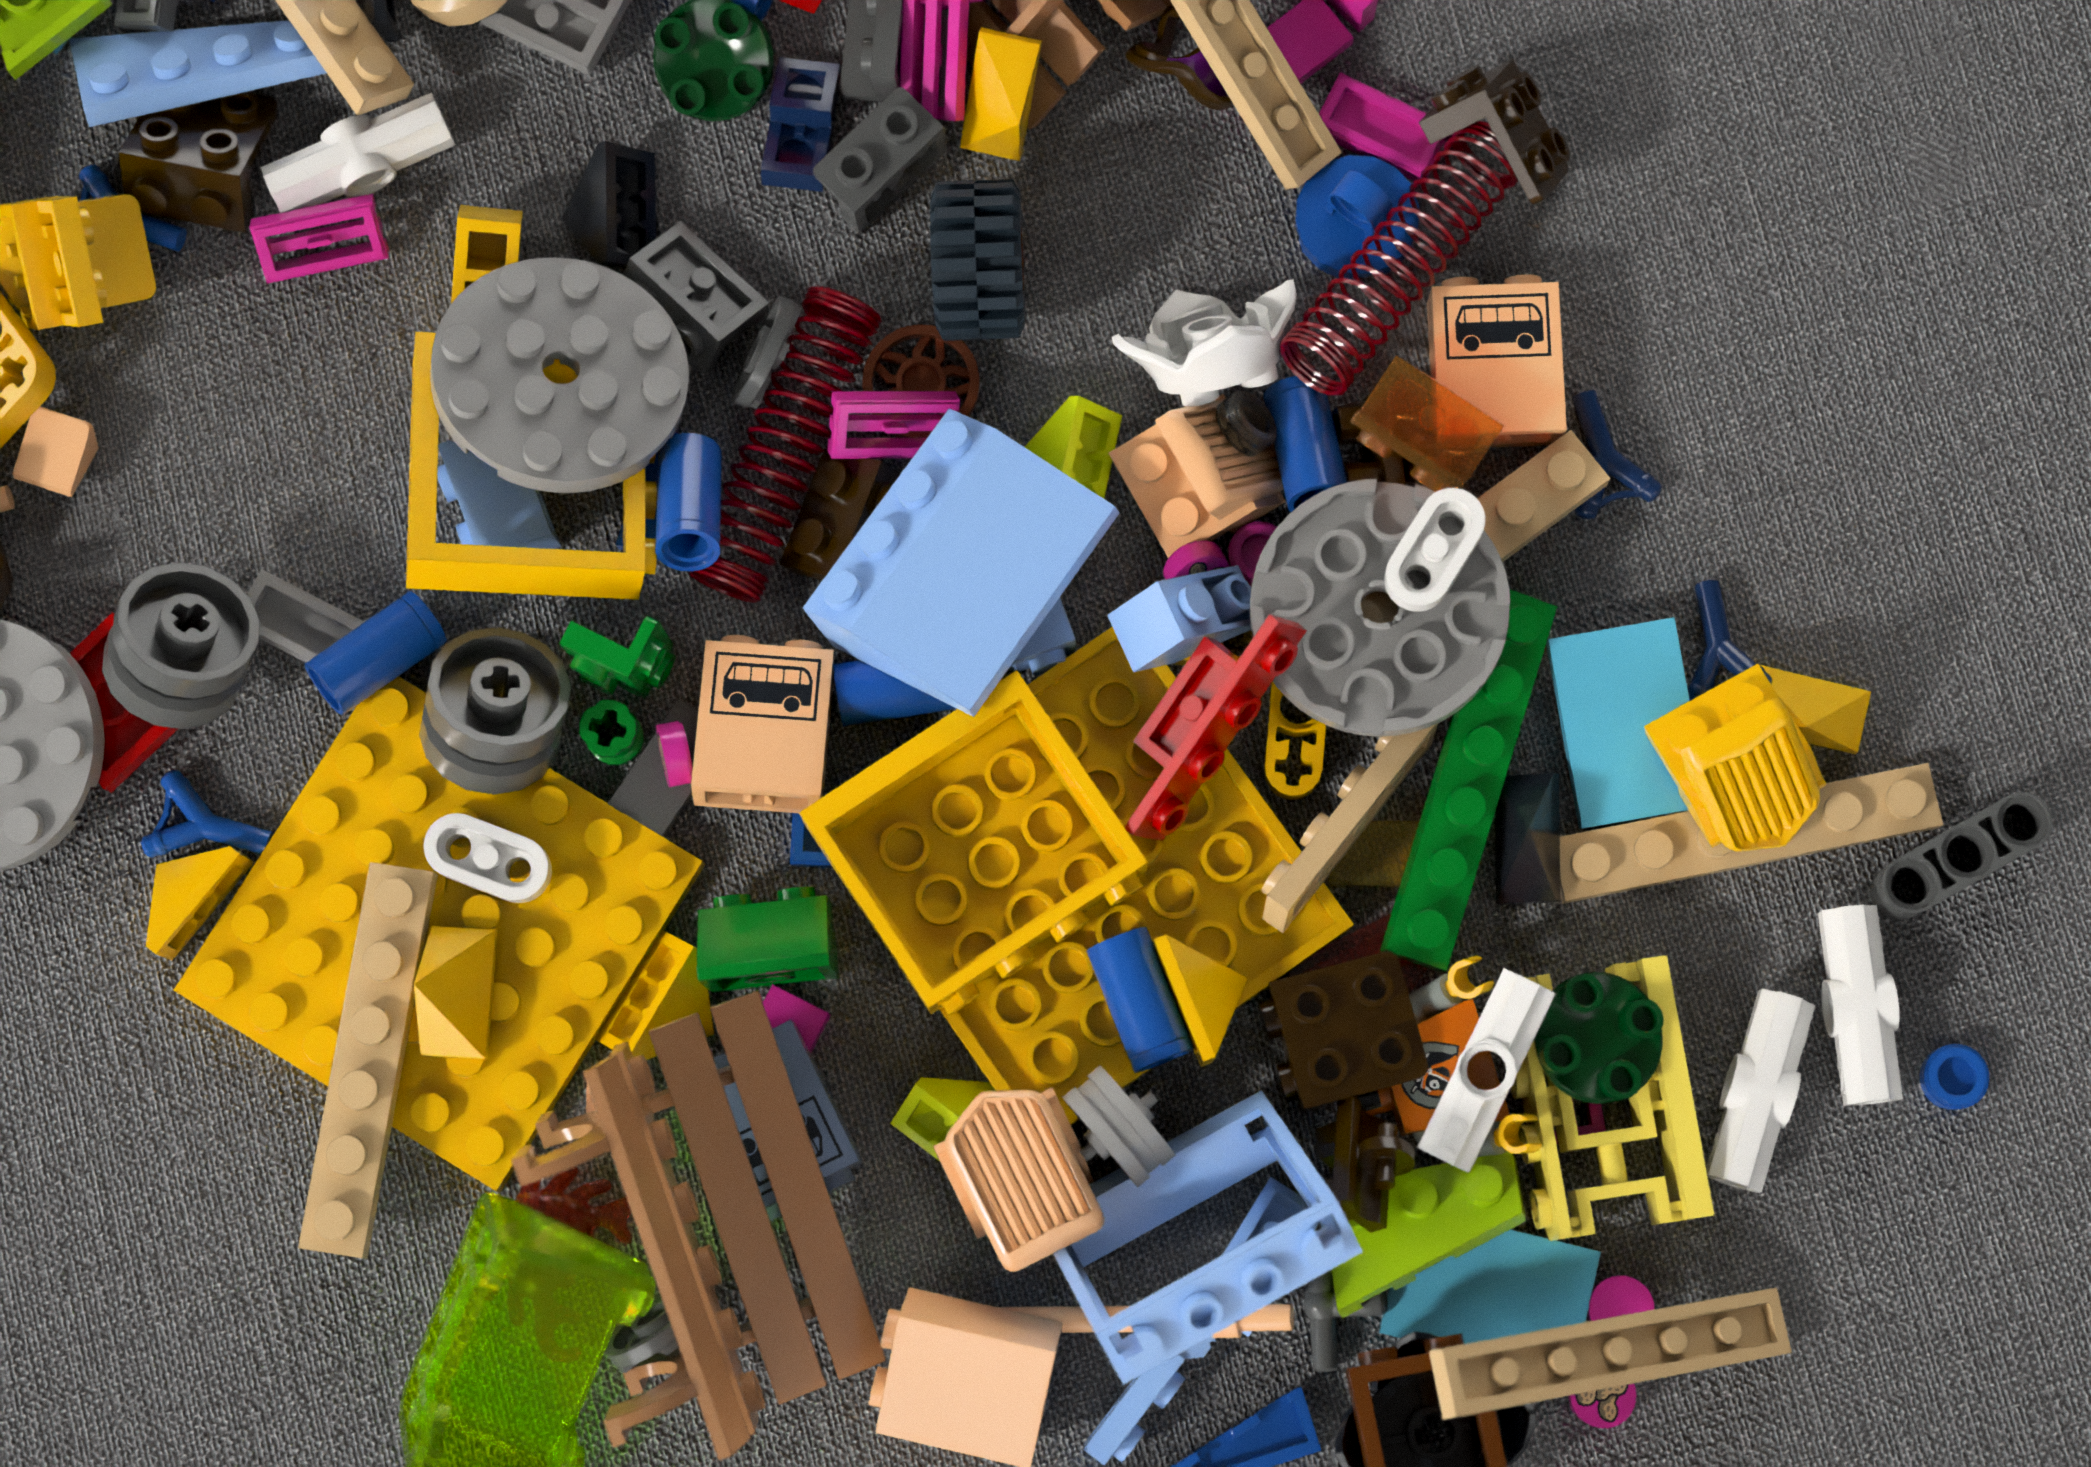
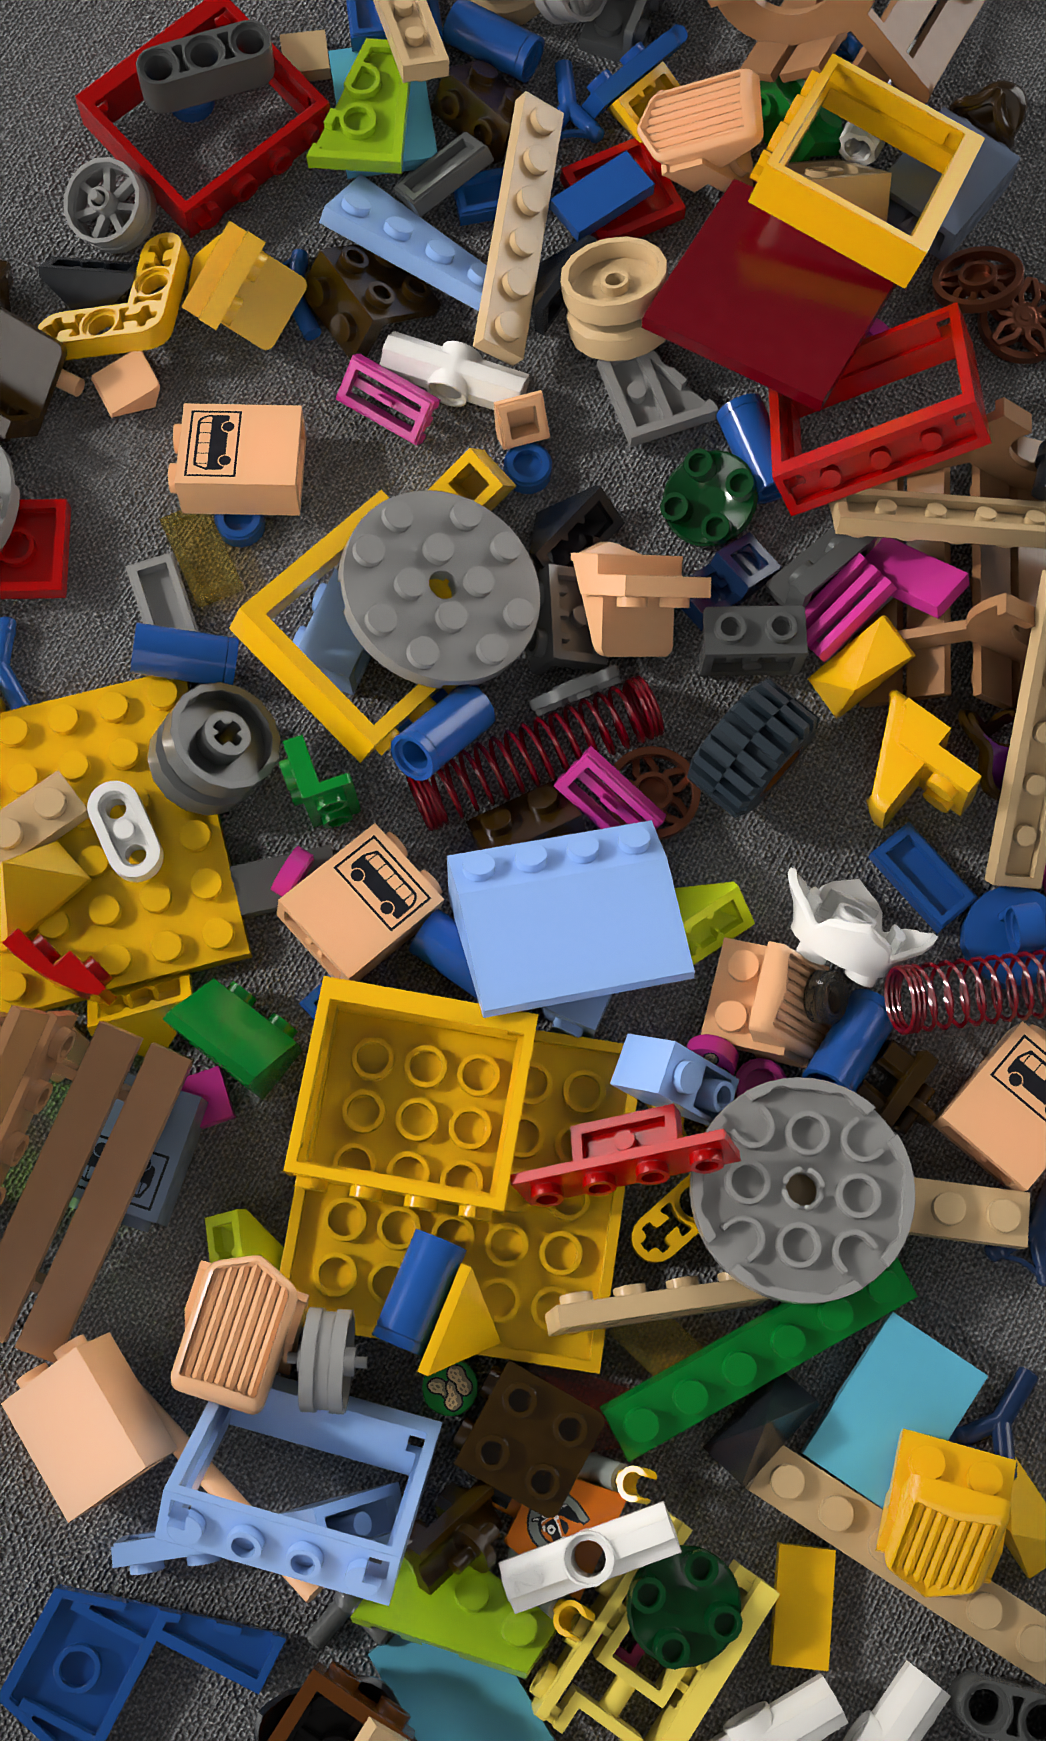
camera: 35 degrees right, 5 degrees down
(180, 645) = (78, 547): dark grey wheel -> none
(239, 424) = (239, 459): none -> light nougat brick
(288, 546) = (202, 556): none -> clear yellow tile
(293, 482) = (240, 529): none -> blue tile
(469, 145) = (521, 420): none -> light nougat slope
(514, 182) = (528, 468): none -> blue tile
(572, 1025) = (71, 974): none -> red slope
(602, 717) = (262, 838): green bush -> none
(735, 218) = (633, 598): none -> light nougat piece
(1123, 135) = (916, 756): none -> yellow piece
(1230, 236) = (923, 877): none -> blue tile
(1241, 1059) = (451, 1389): none -> tile
(1425, 426) = (938, 1104): clear orange bracket -> none
(1432, 551) = (869, 1187): white plate -> none
(1697, 951) = (804, 1606): none -> yellow tile

